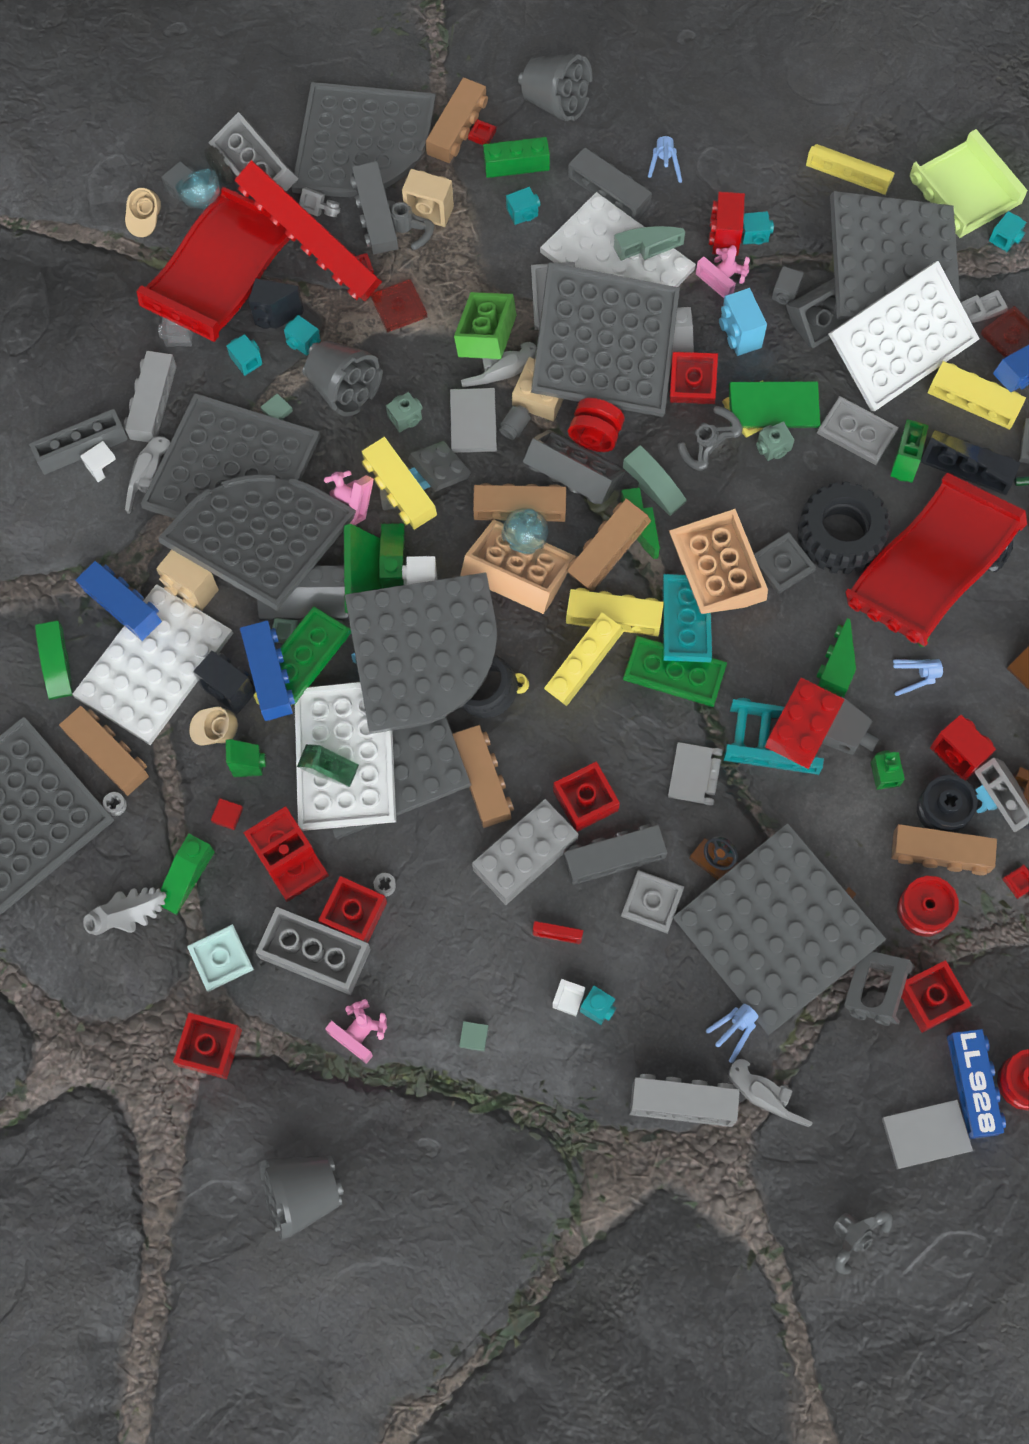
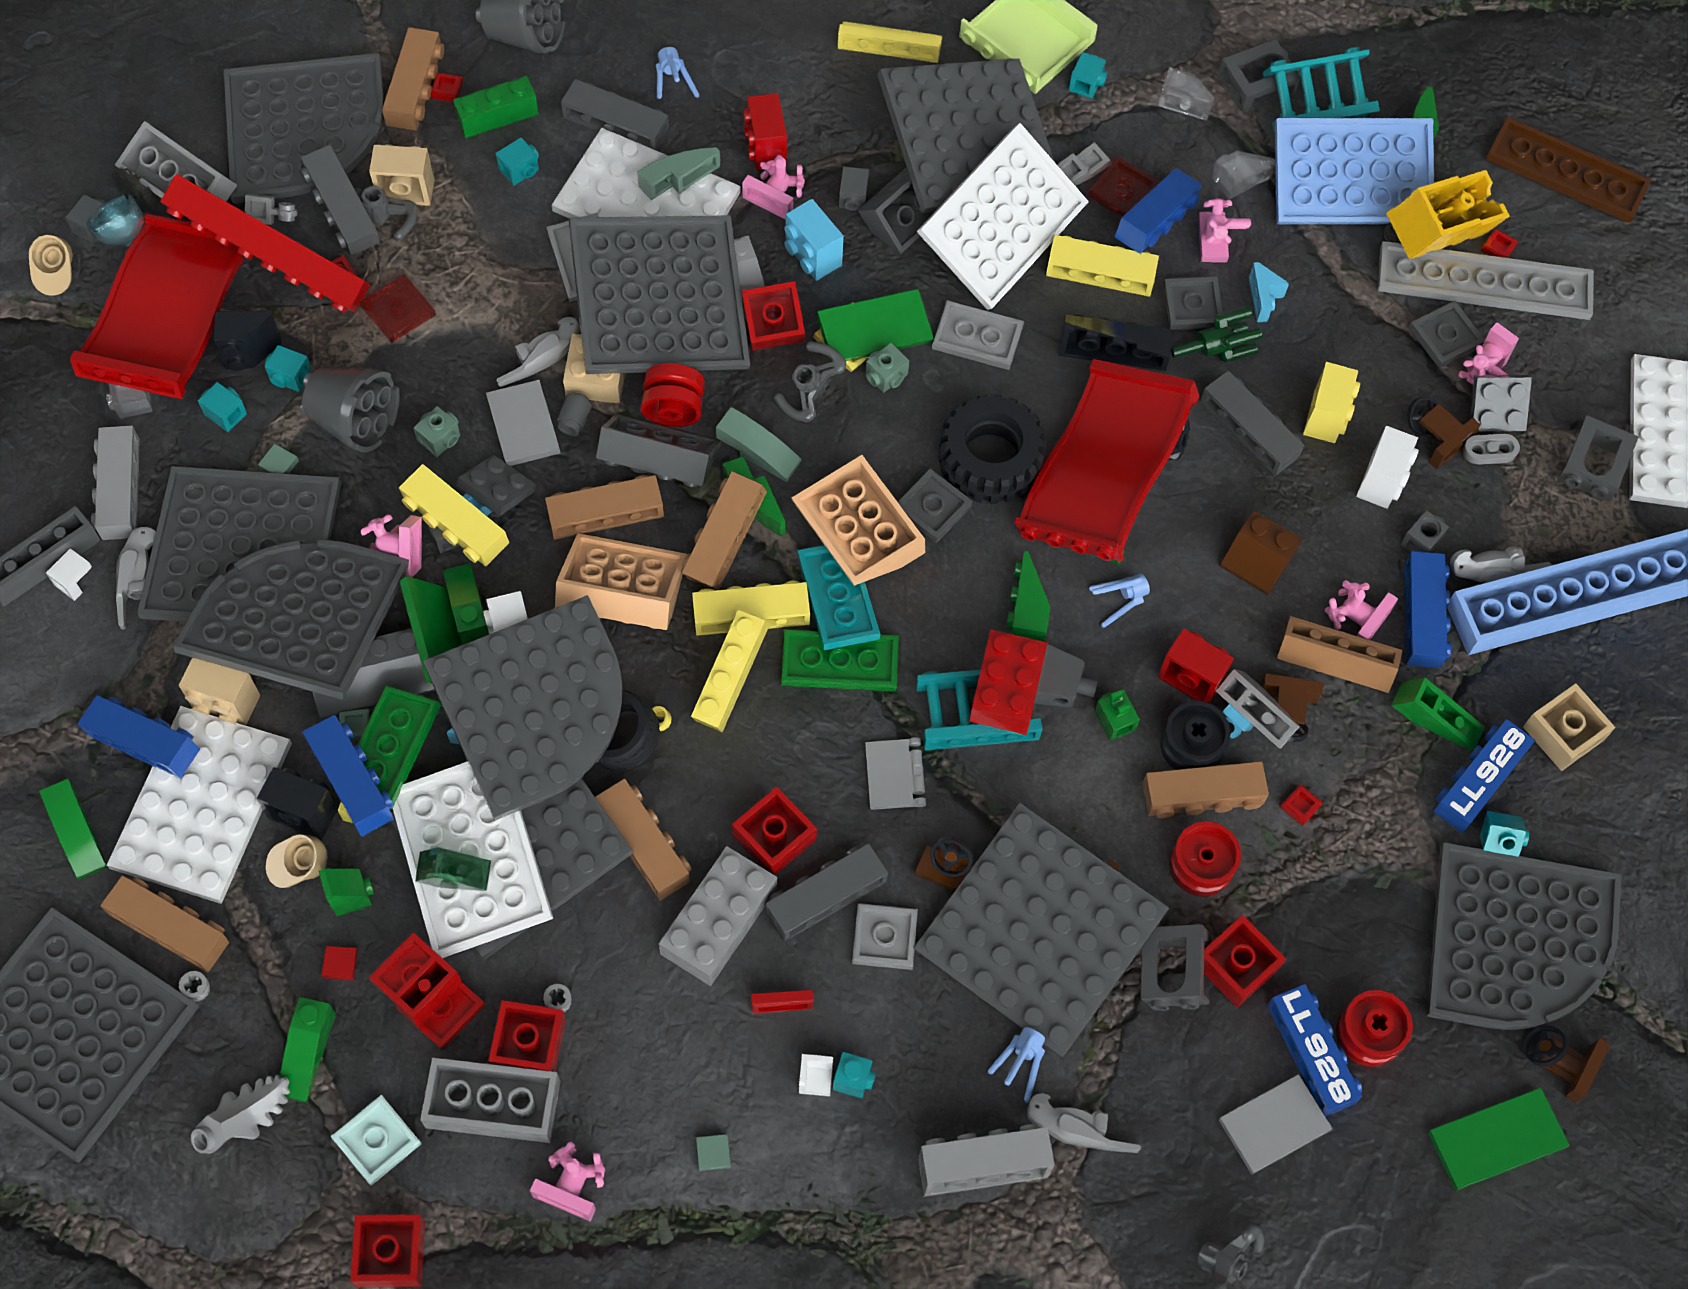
camera: 20 degrees left, 5 degrees down
(485, 325) = (510, 308): bright green brick -> none
(525, 530) = (620, 537): clear light blue cylinder -> none
(756, 228) = (801, 130): teal brick -> none
(909, 451) = (1043, 345): green slope -> none

